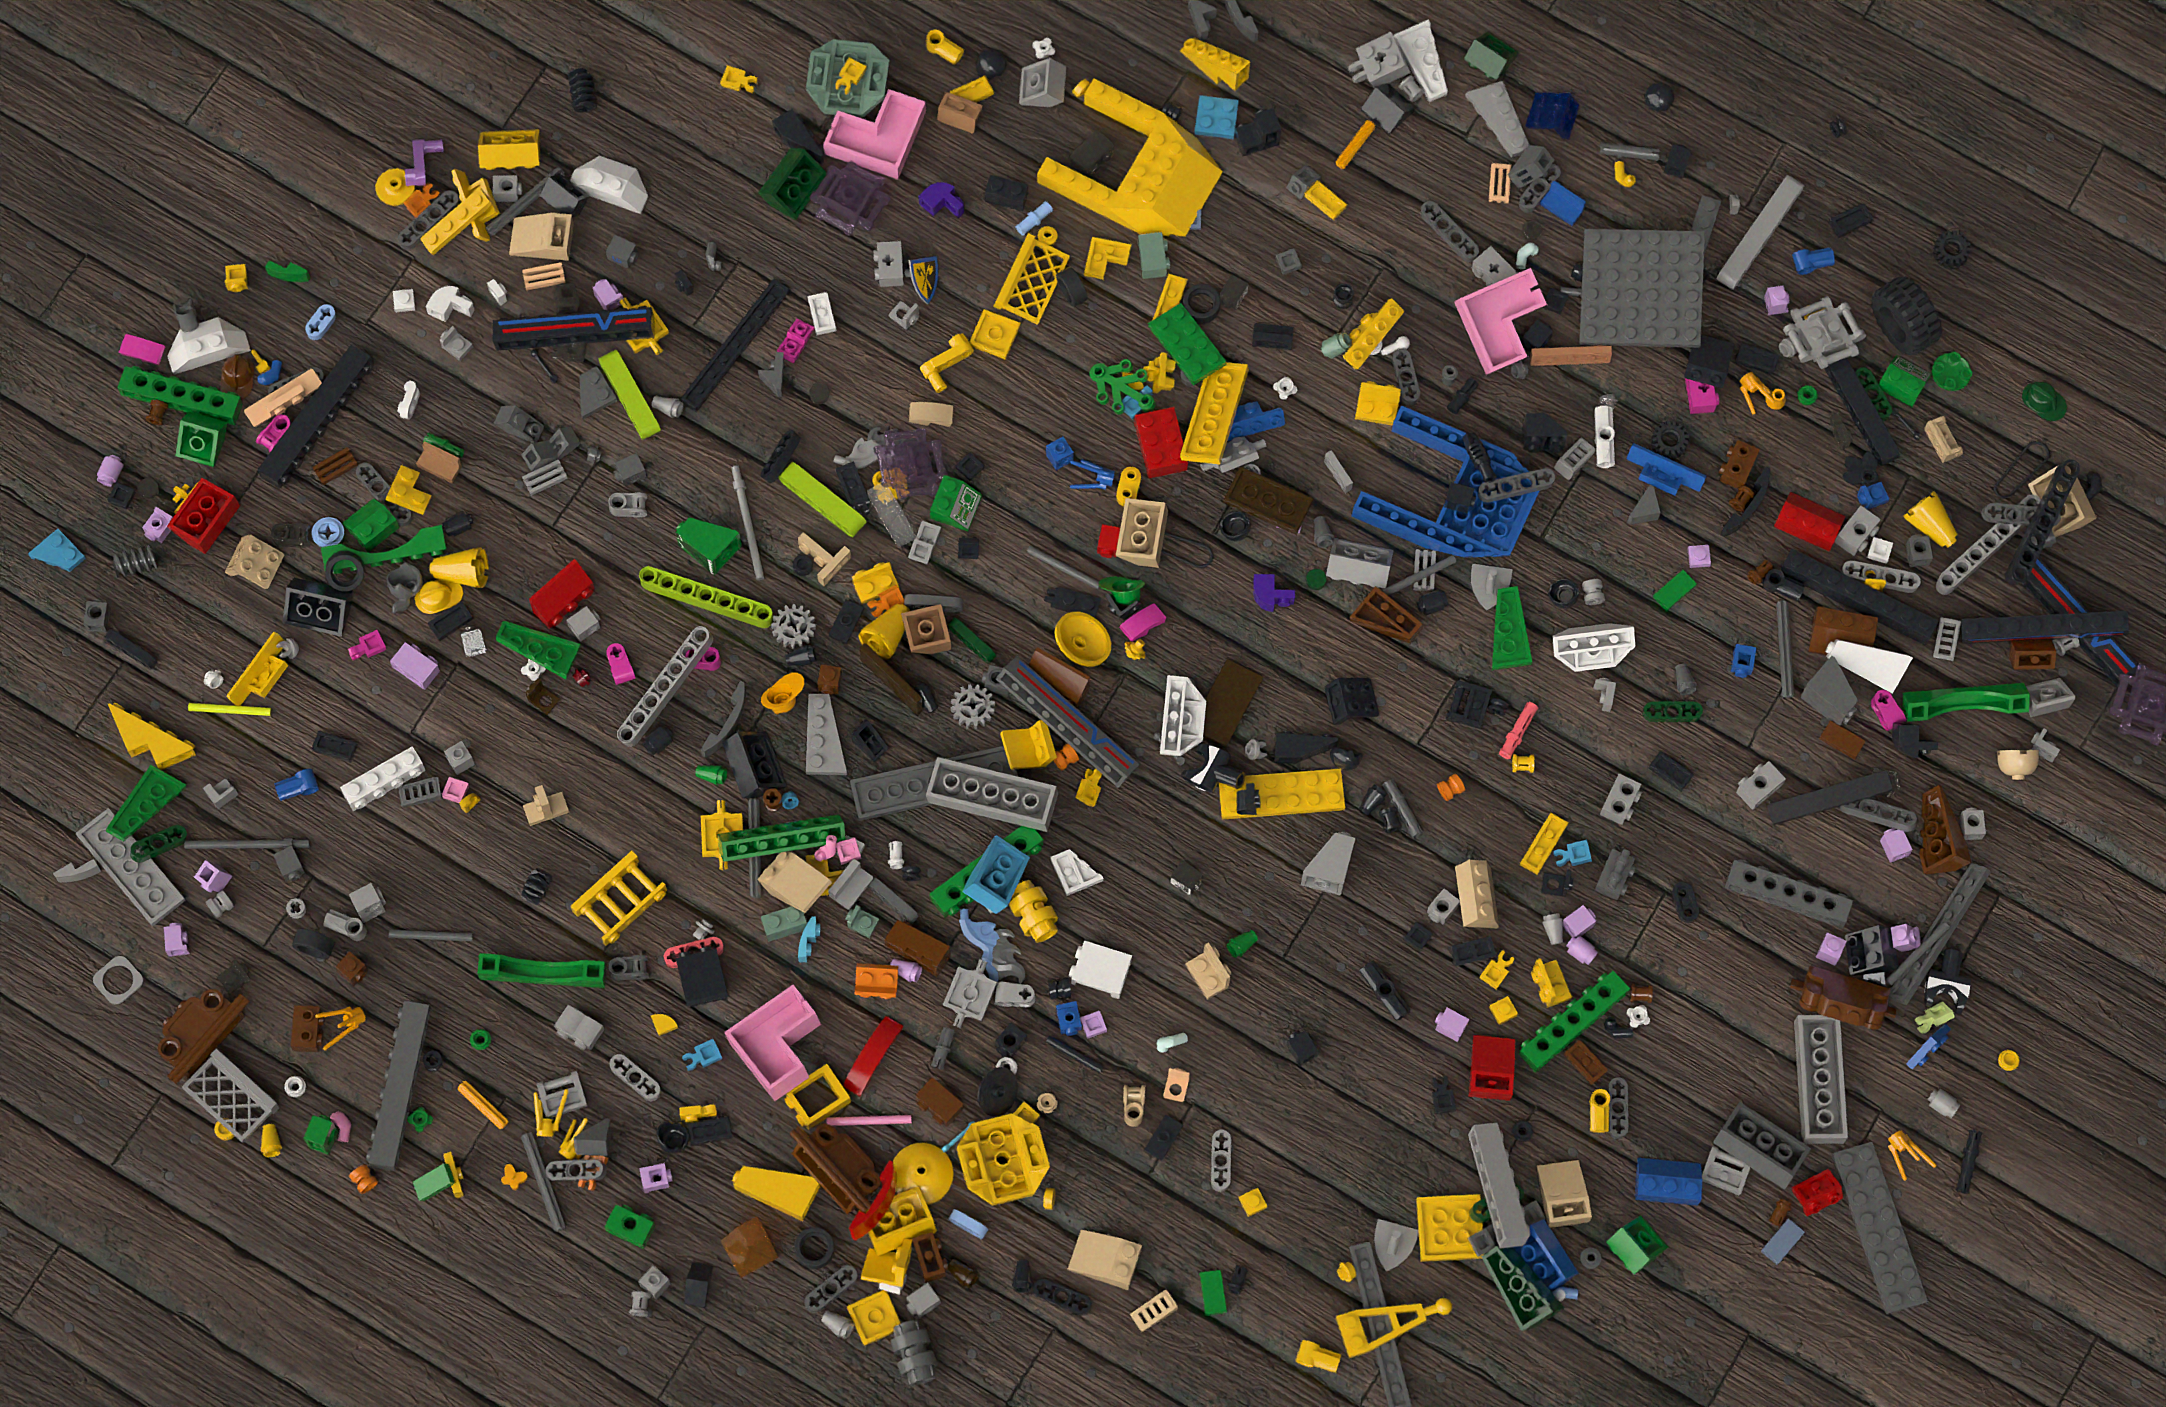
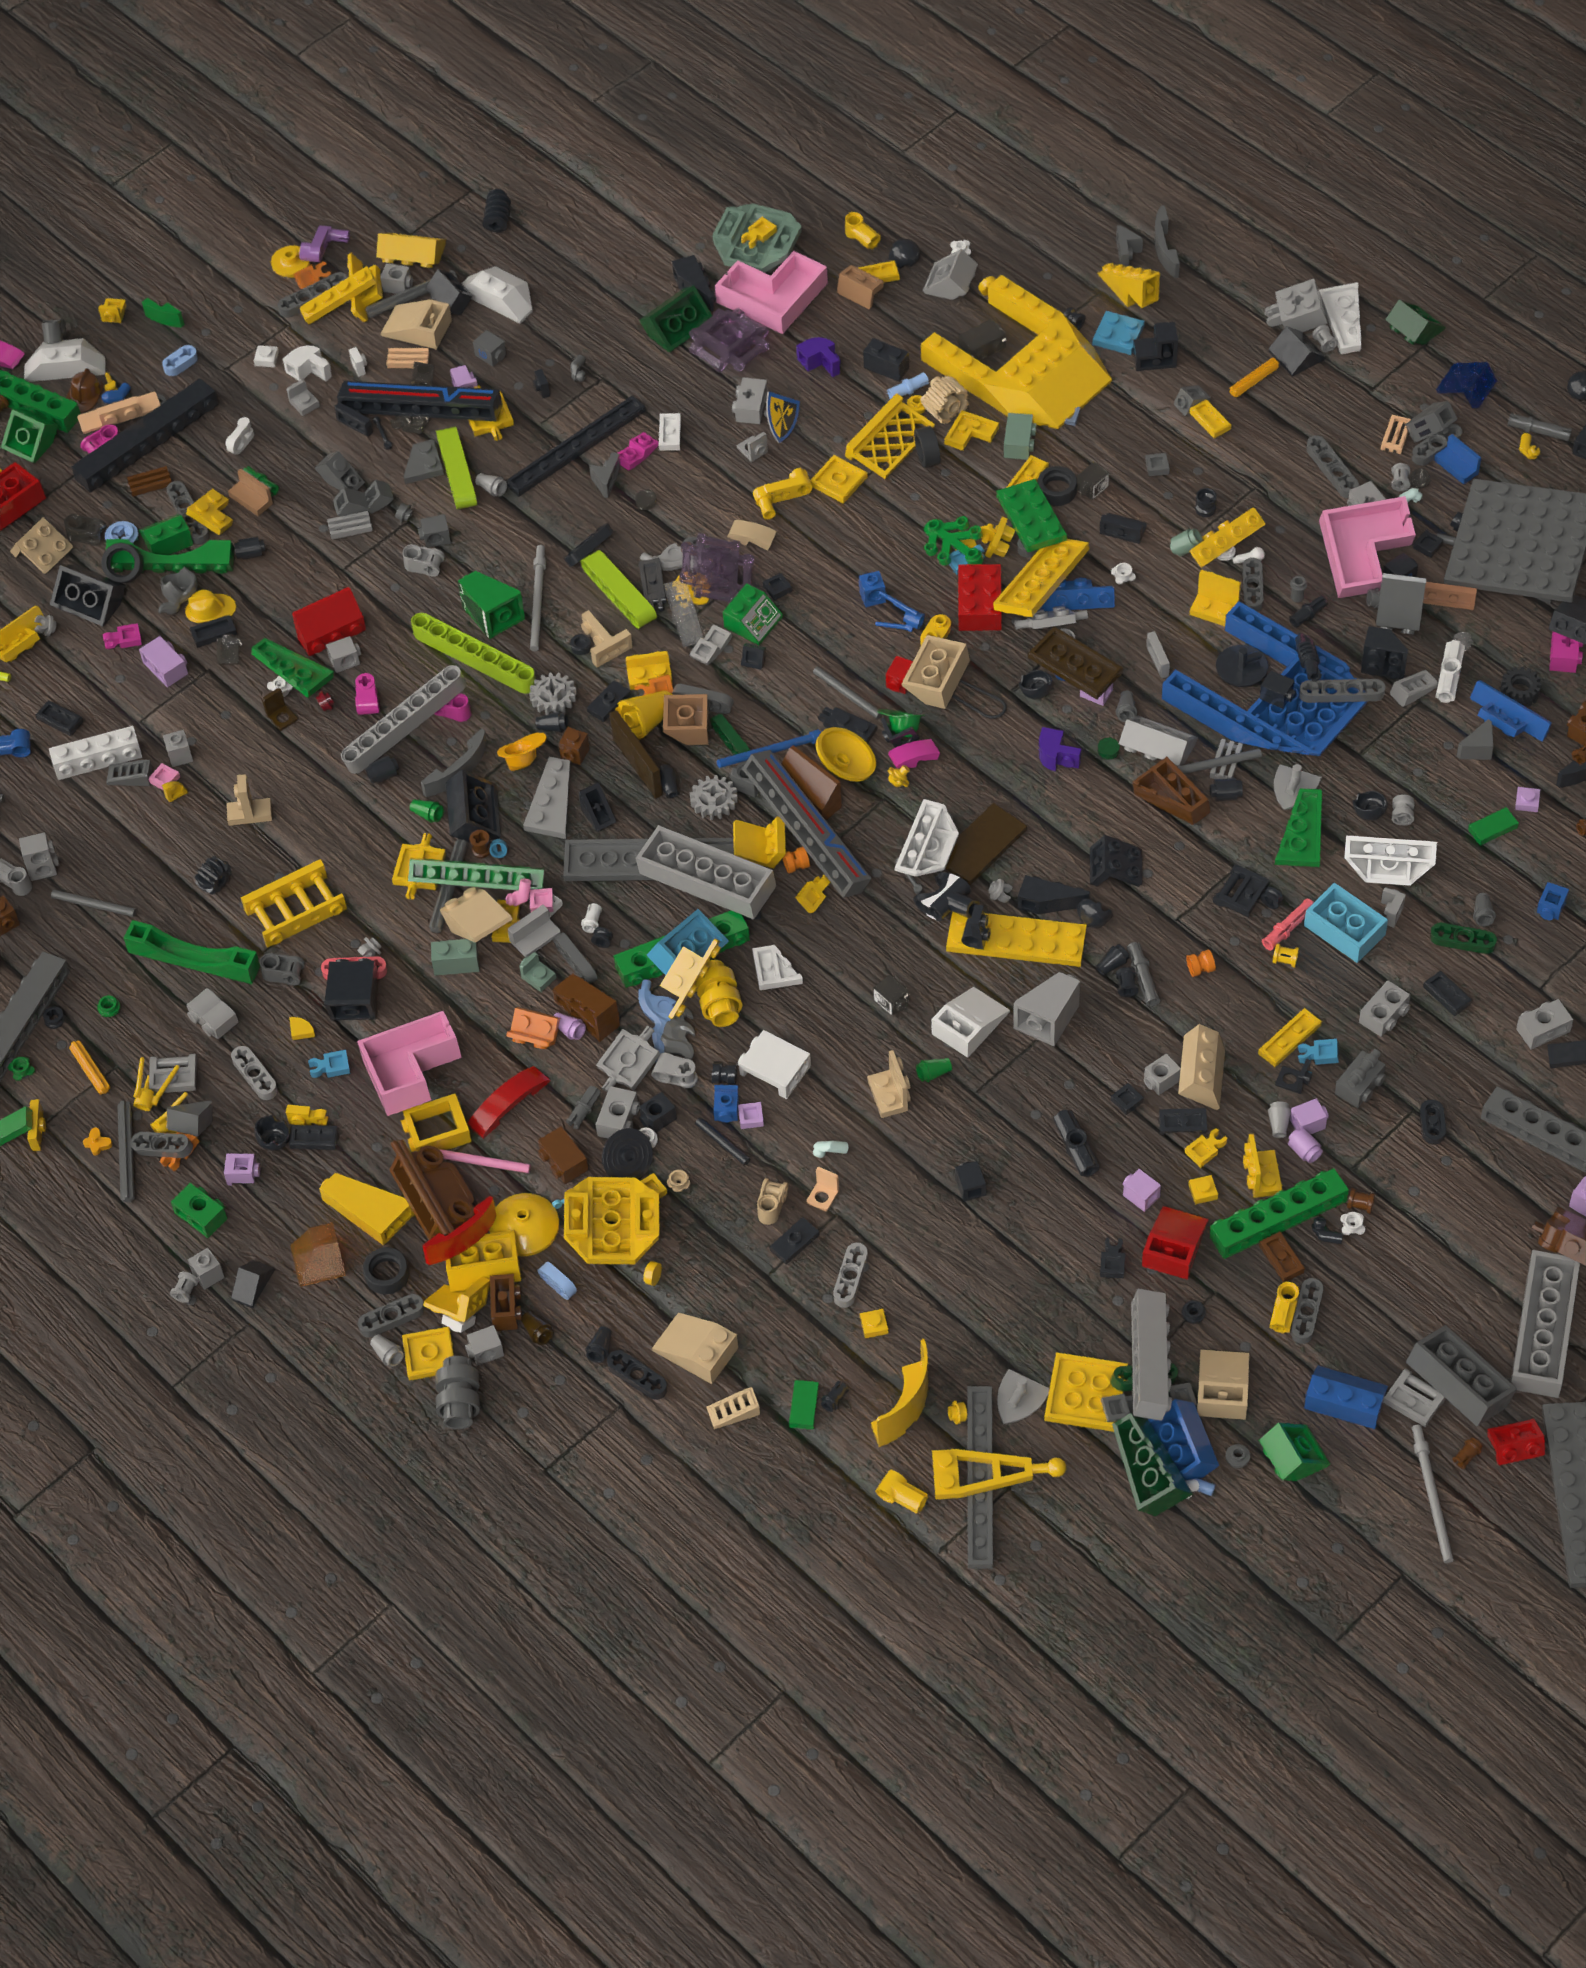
camera: 20 degrees right, 15 degrees down
(462, 567) = (241, 583): yellow cone -> none
(513, 359) = (353, 419): none -> black plate
(735, 79) = (650, 226): yellow plate -> none
(809, 935) = (475, 975): medium azure slope -> none
(976, 1037) = (617, 1102): none -> light grey brick
(1004, 904) = (685, 973): none -> yellow bracket
(1046, 623) = (810, 738): none -> blue bar
(1075, 230) = (945, 398): none -> tan brick
(1262, 888) = (968, 1020): none -> white slope
(1305, 1255) = (910, 1405): none -> yellow panel
(1415, 466) = (1241, 665): none -> black shield
(1500, 116) = (1411, 376): light grey wing -> none
(1518, 238) = (1398, 477): none -> light grey bush
(1547, 376) = (1400, 603): none -> dark grey slope
(1569, 721) = (1345, 922): none -> medium azure brick
(1741, 1217) = (1422, 1450): none -> light grey bar
(1782, 1241) = (1464, 1485): sand blue tile -> none

